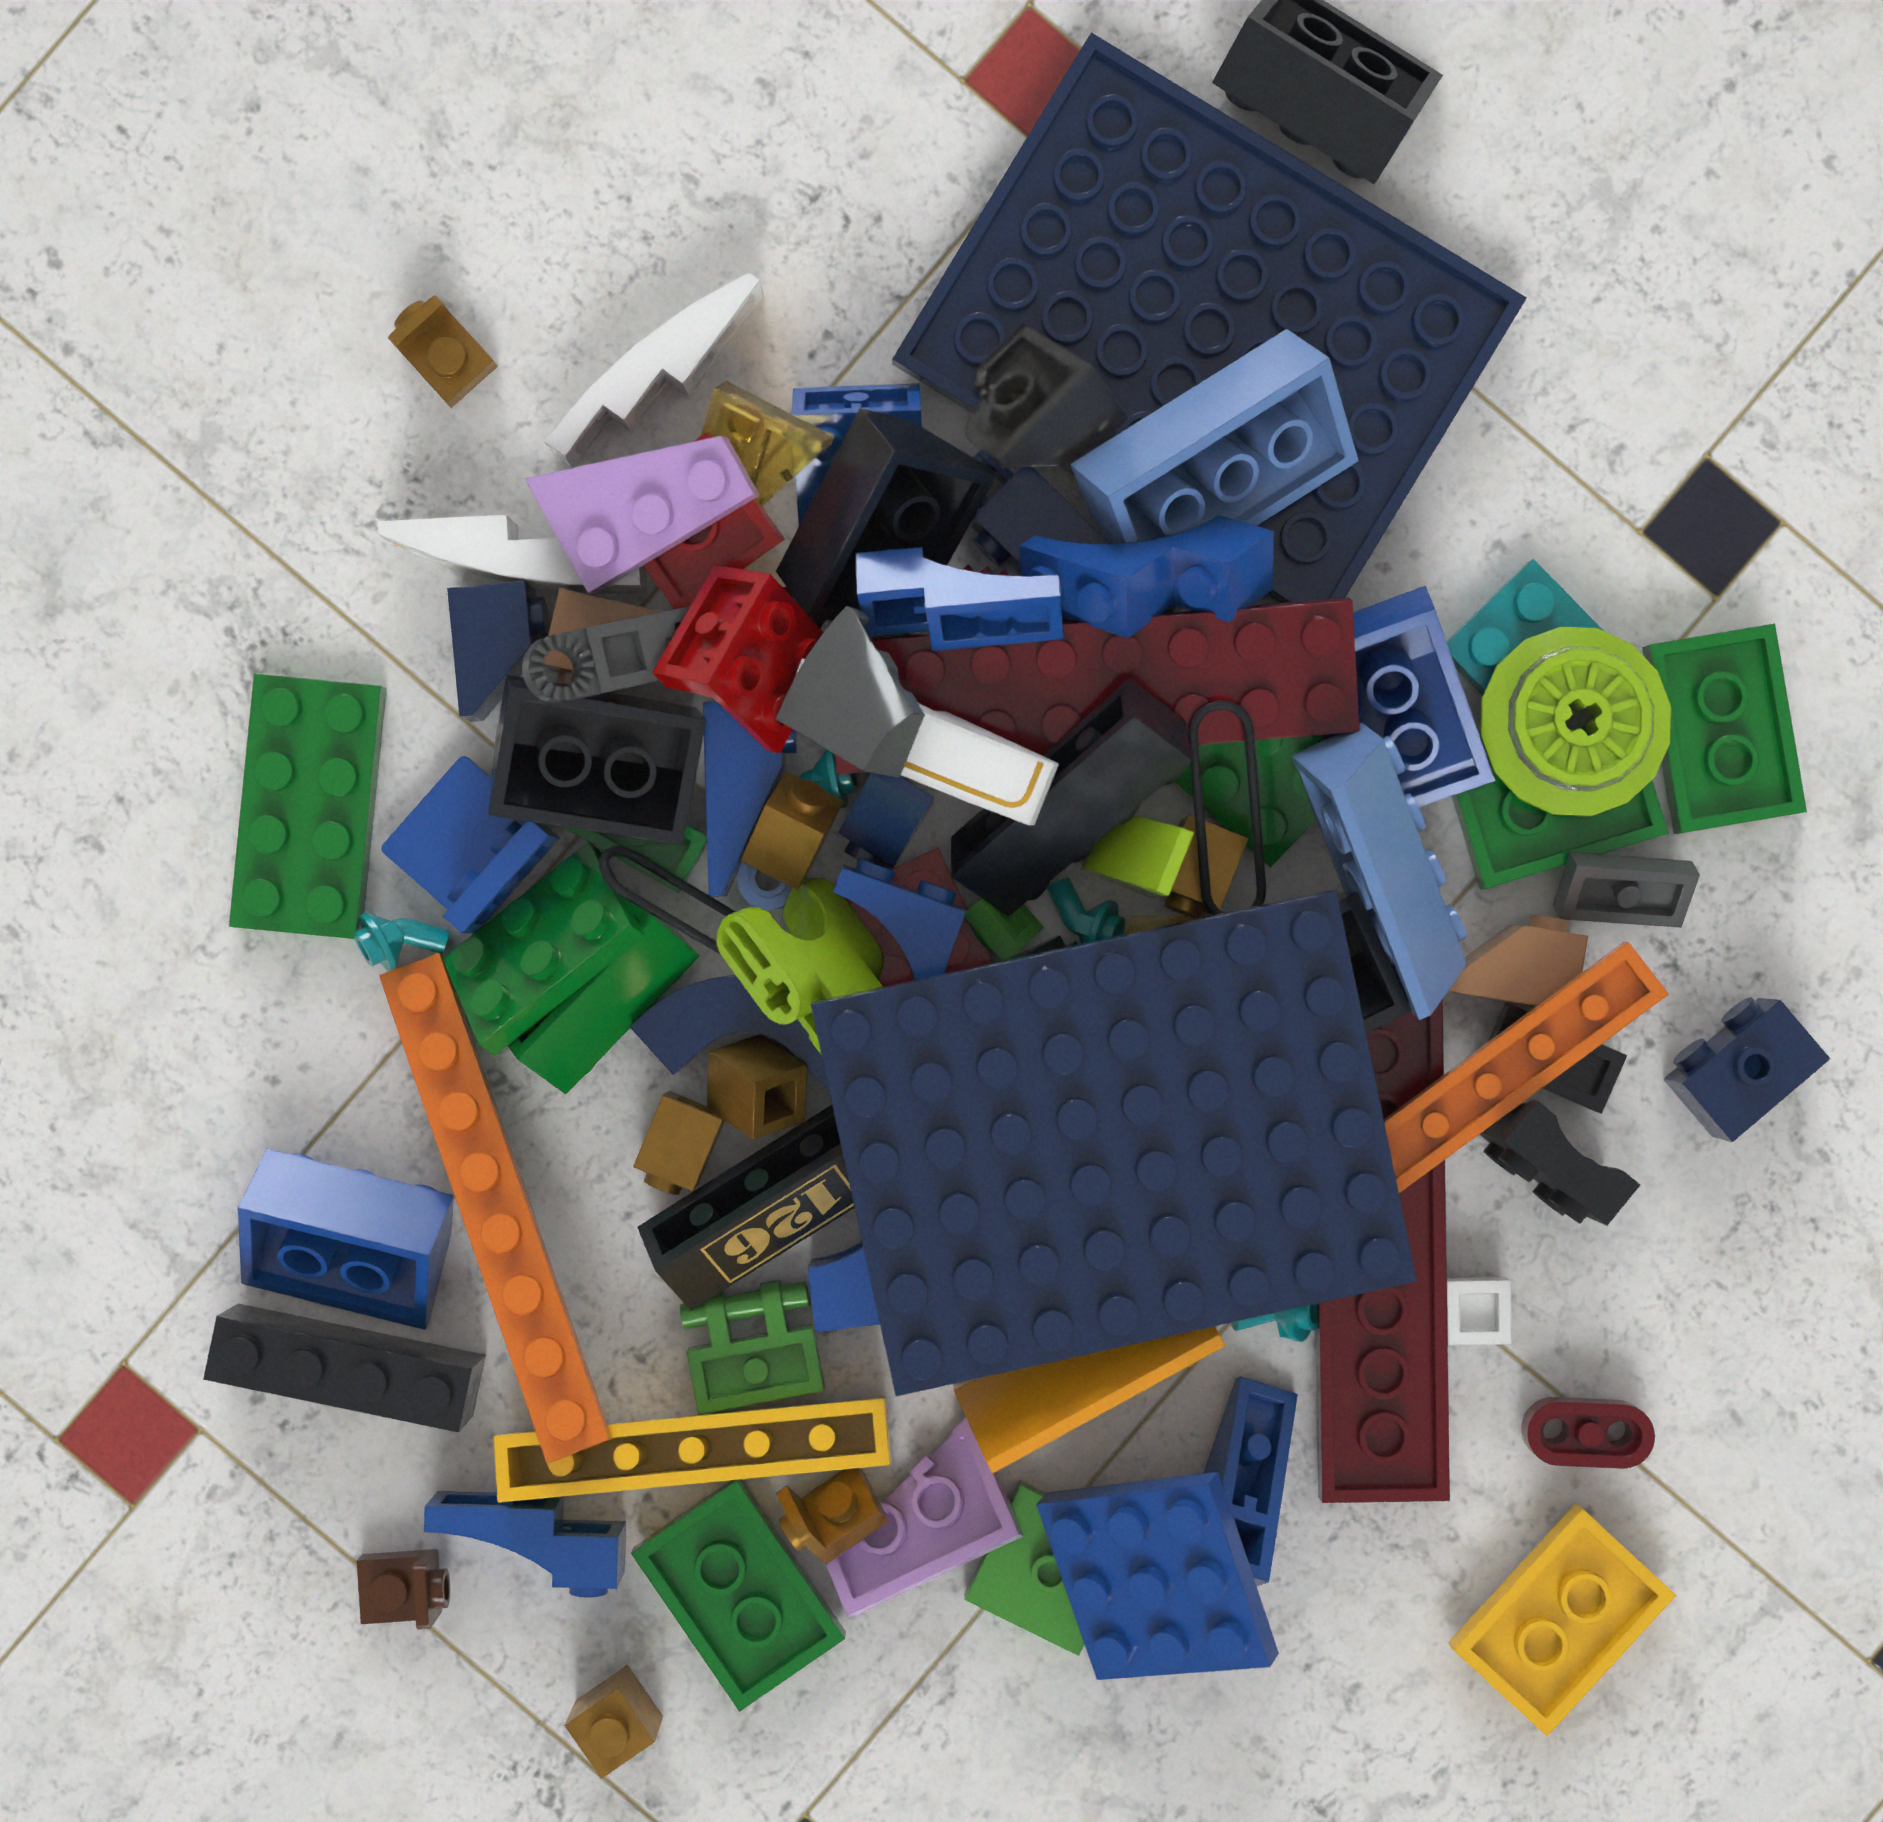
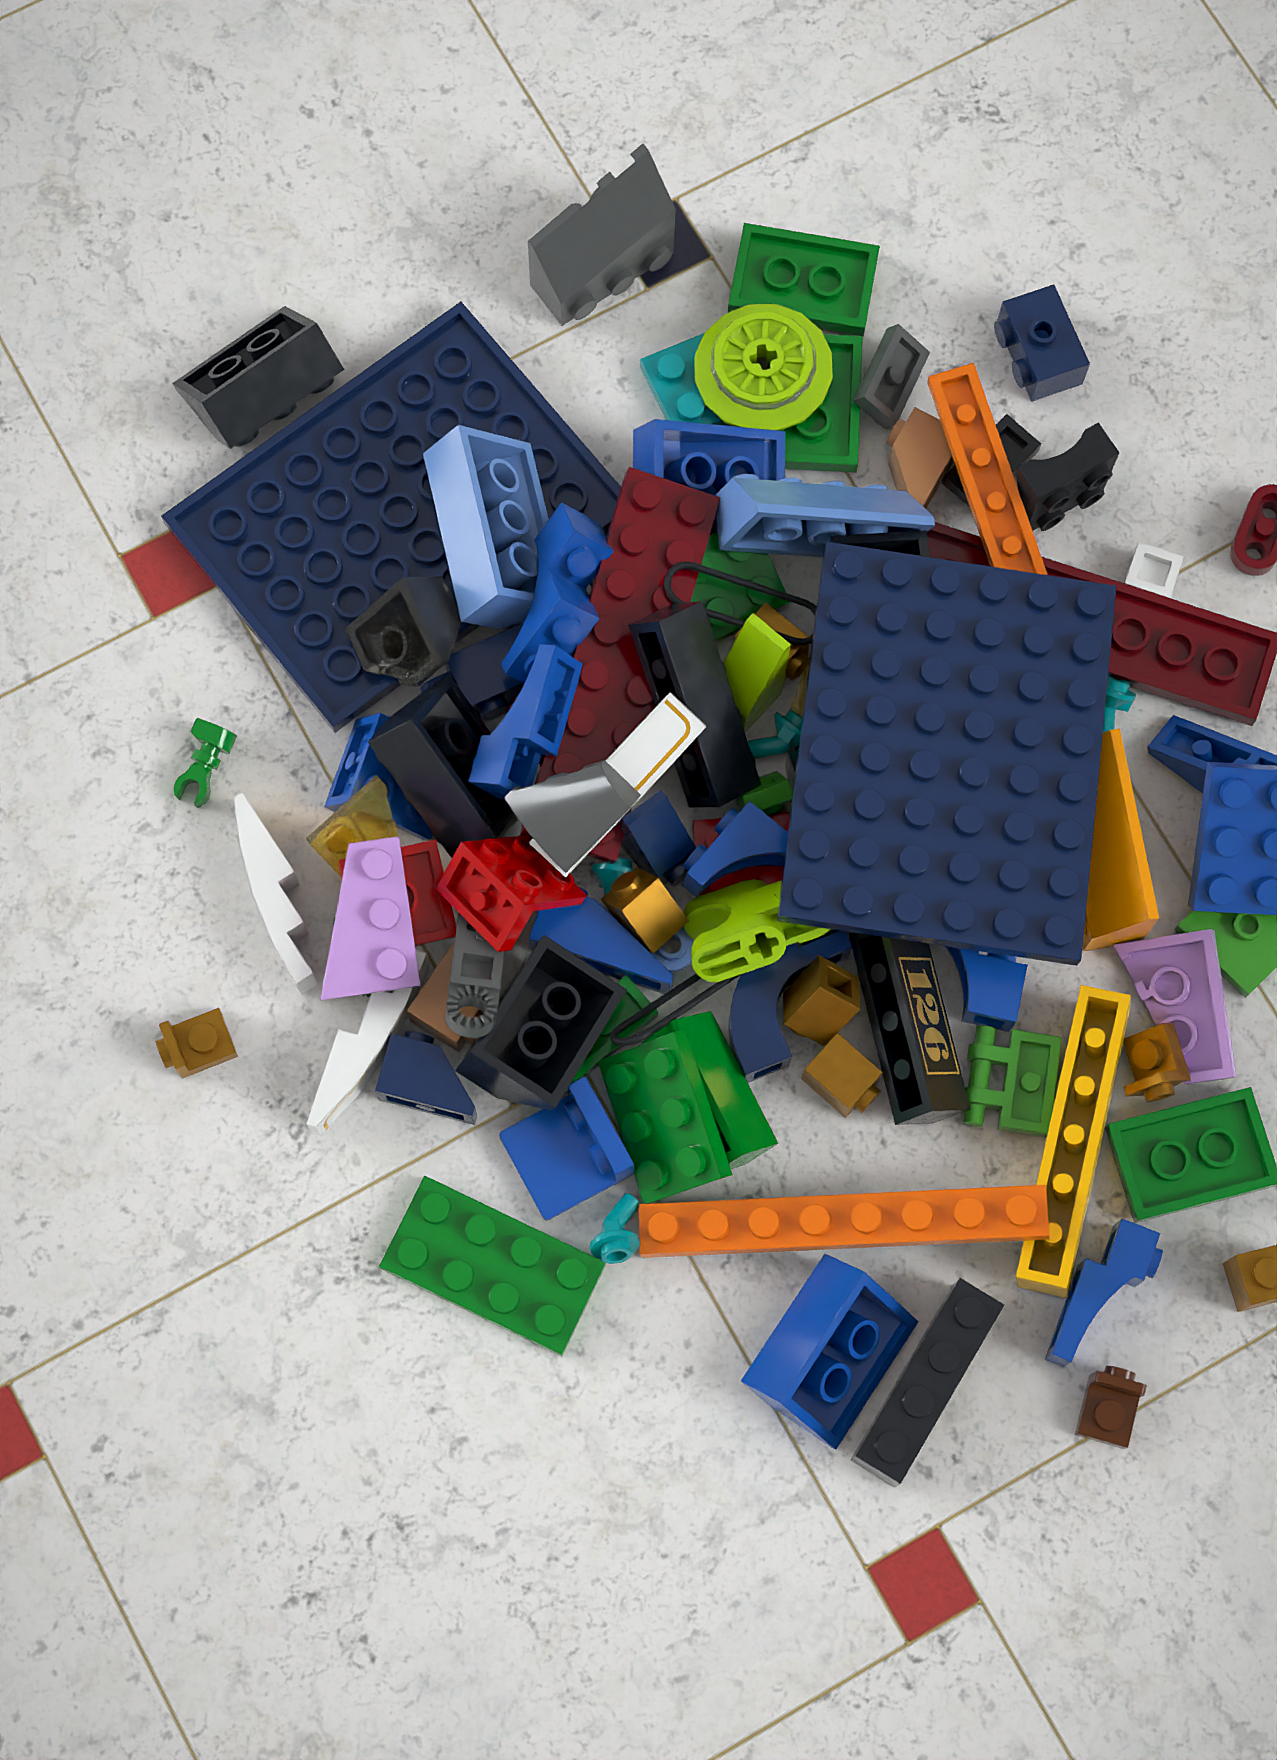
camera: 70 degrees left, 15 degrees down
(825, 218) = (213, 741): none -> green piece
(1671, 453) = (604, 242): none -> dark grey wedge

